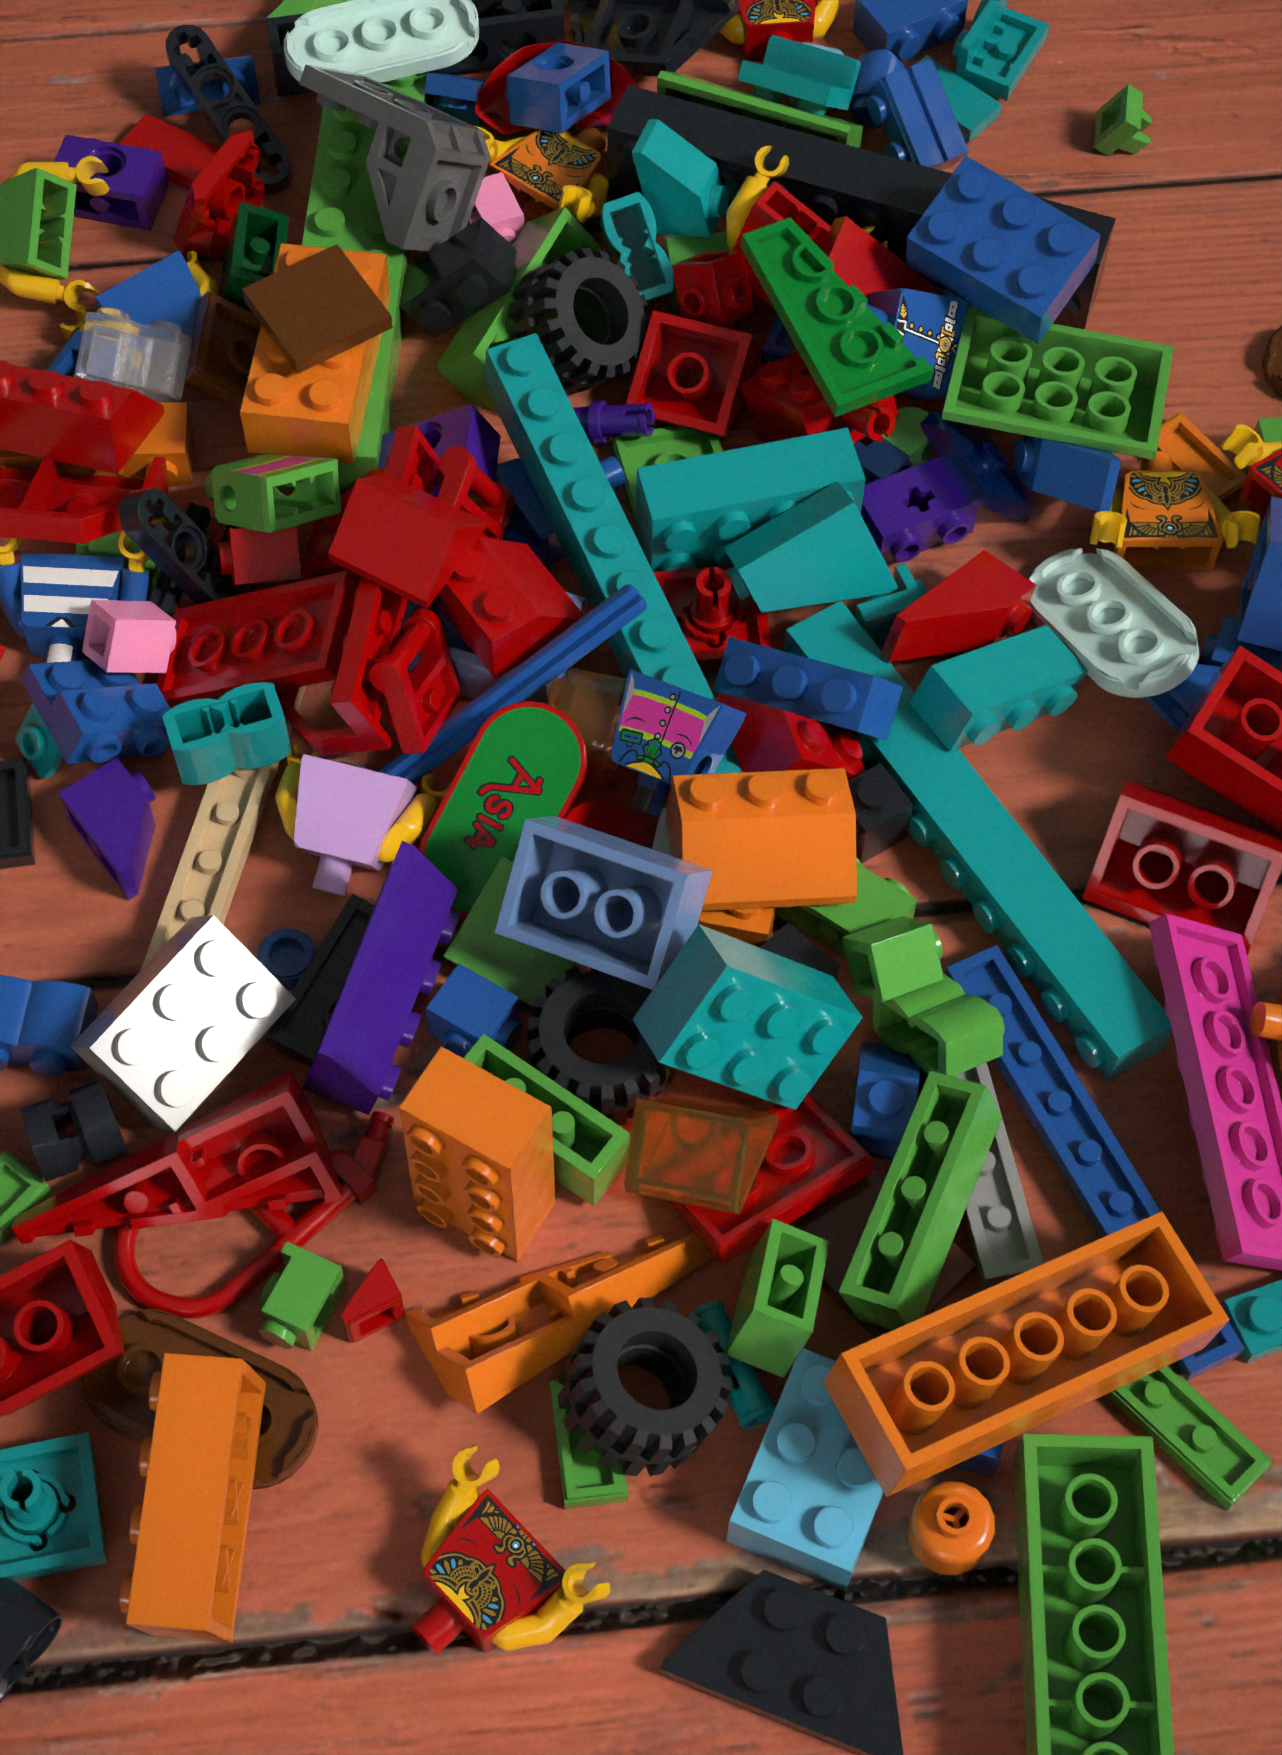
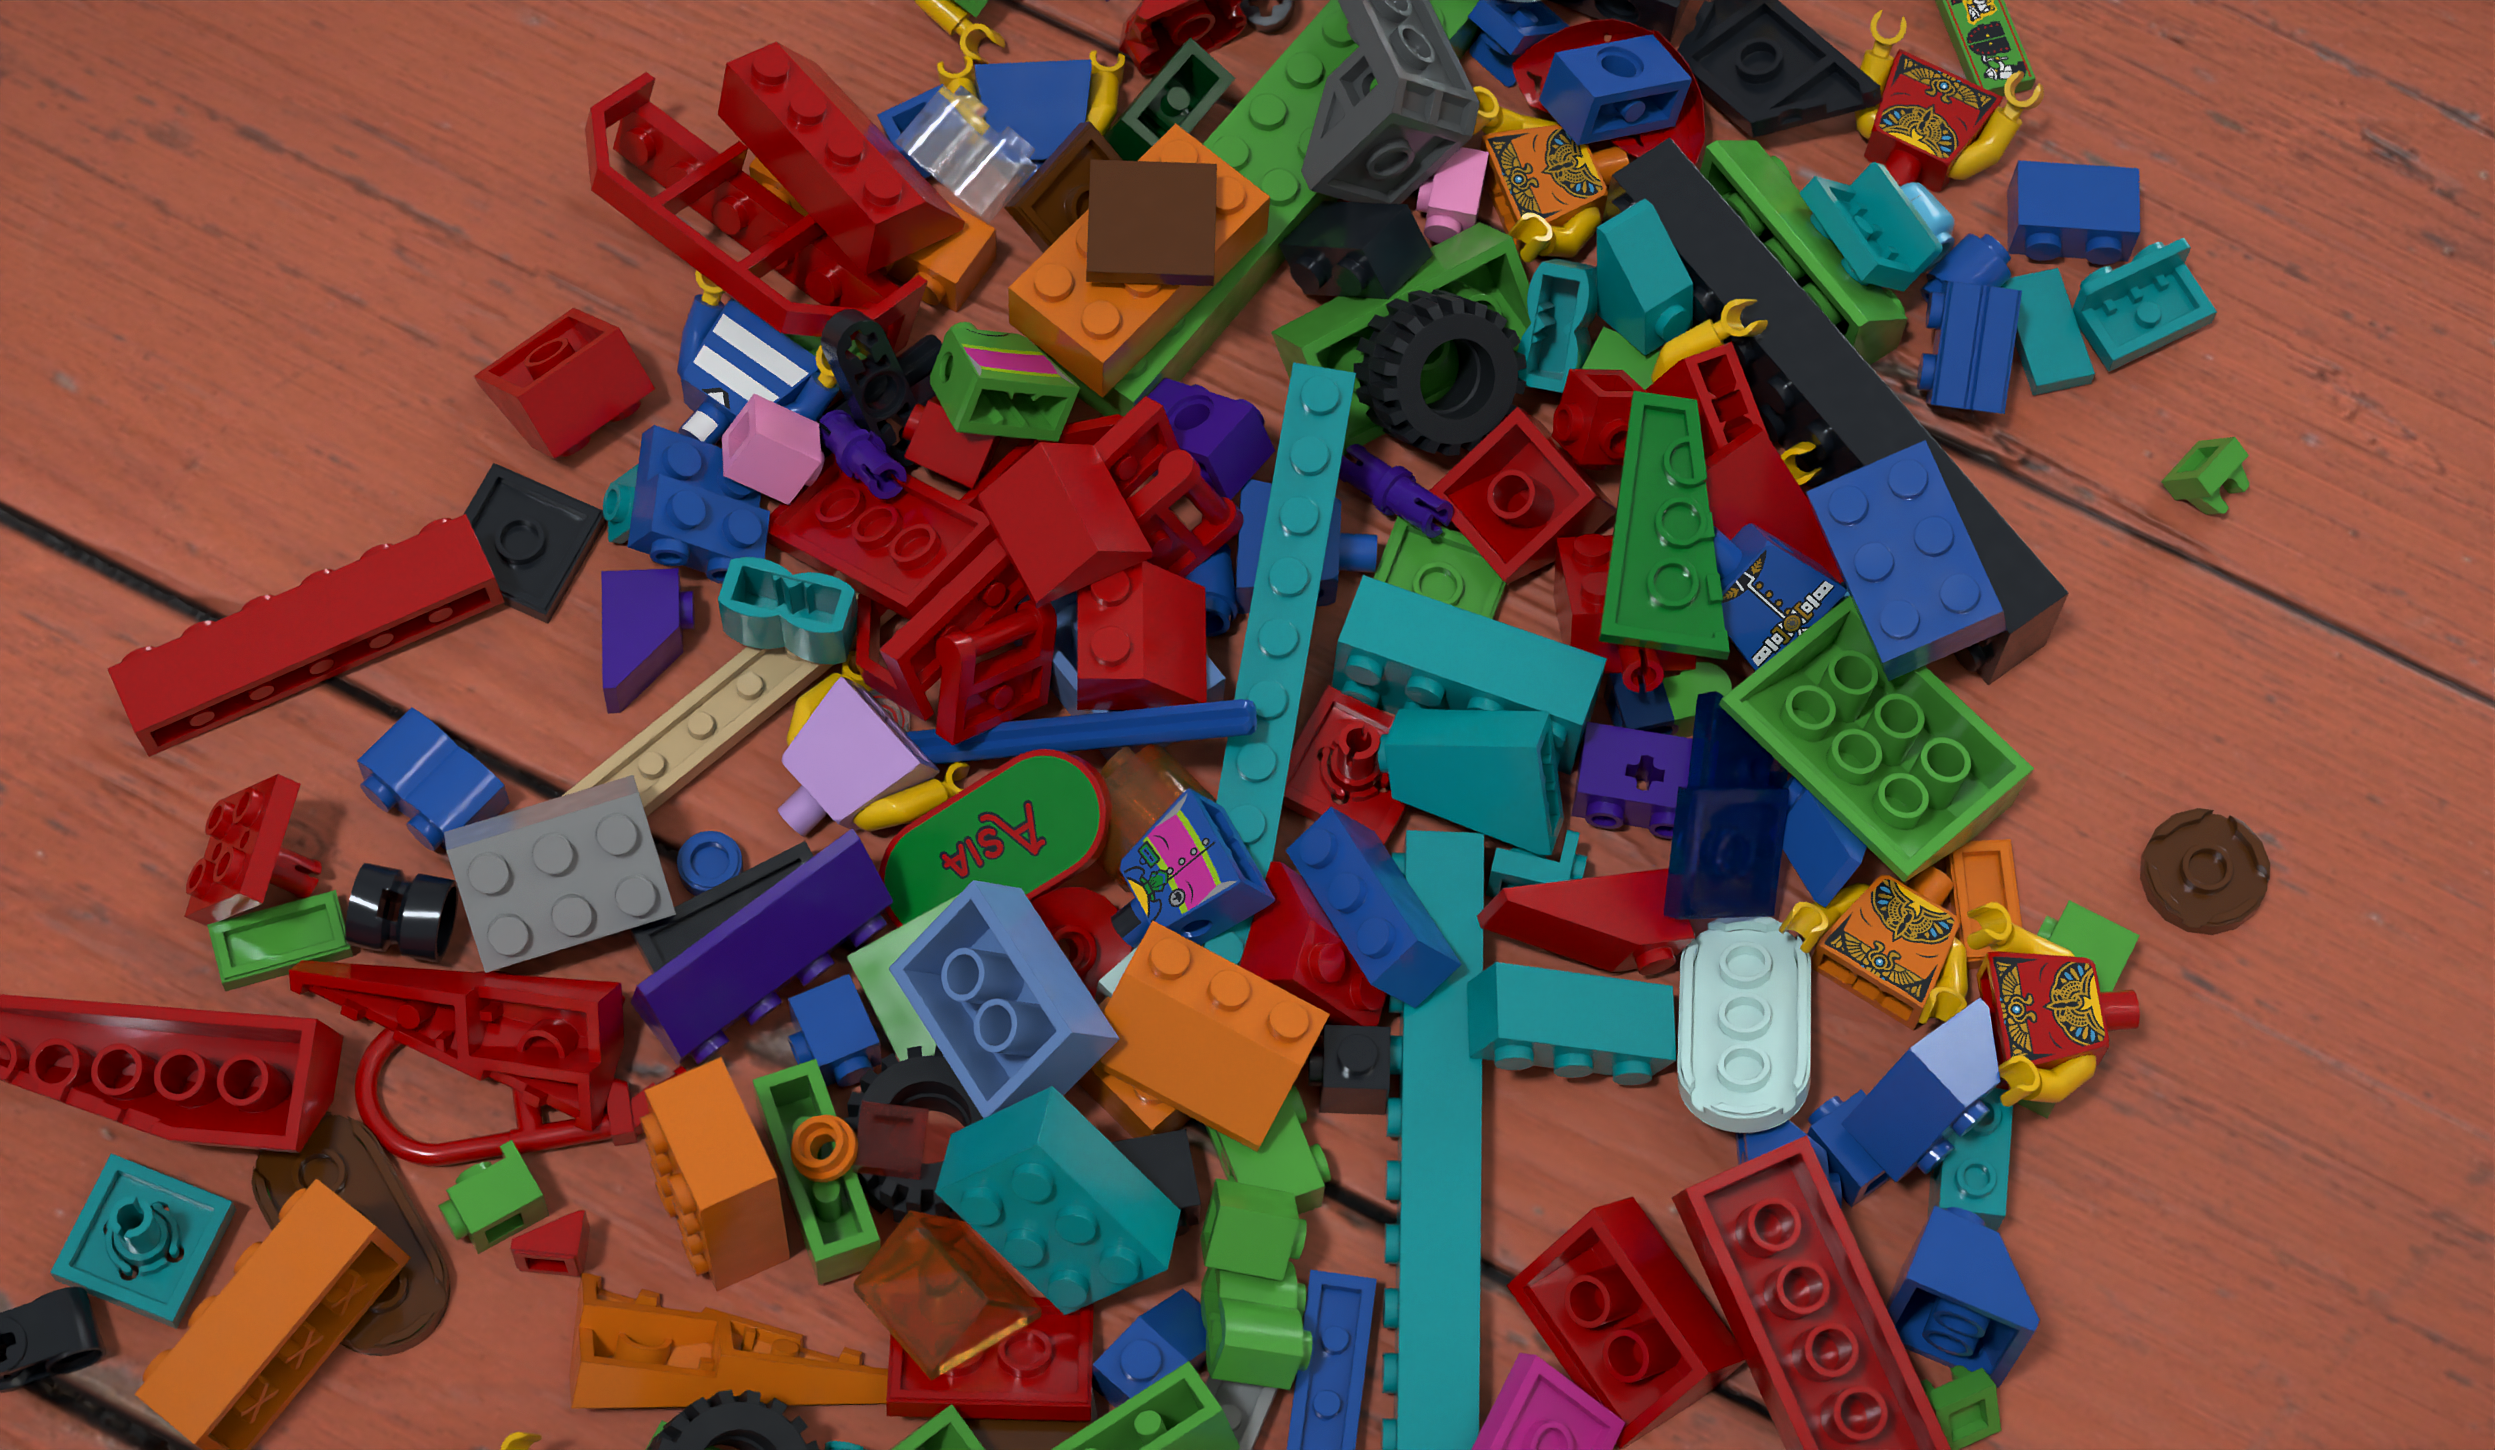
camera: 30 degrees right, 5 degrees up
(202, 600) = (861, 454): none -> dark purple pin
(547, 1071) = (811, 1136): none -> orange plate
(586, 1055) = (891, 1140): none -> clear red tile
(1017, 513) = (1726, 851): none -> clear blue plate

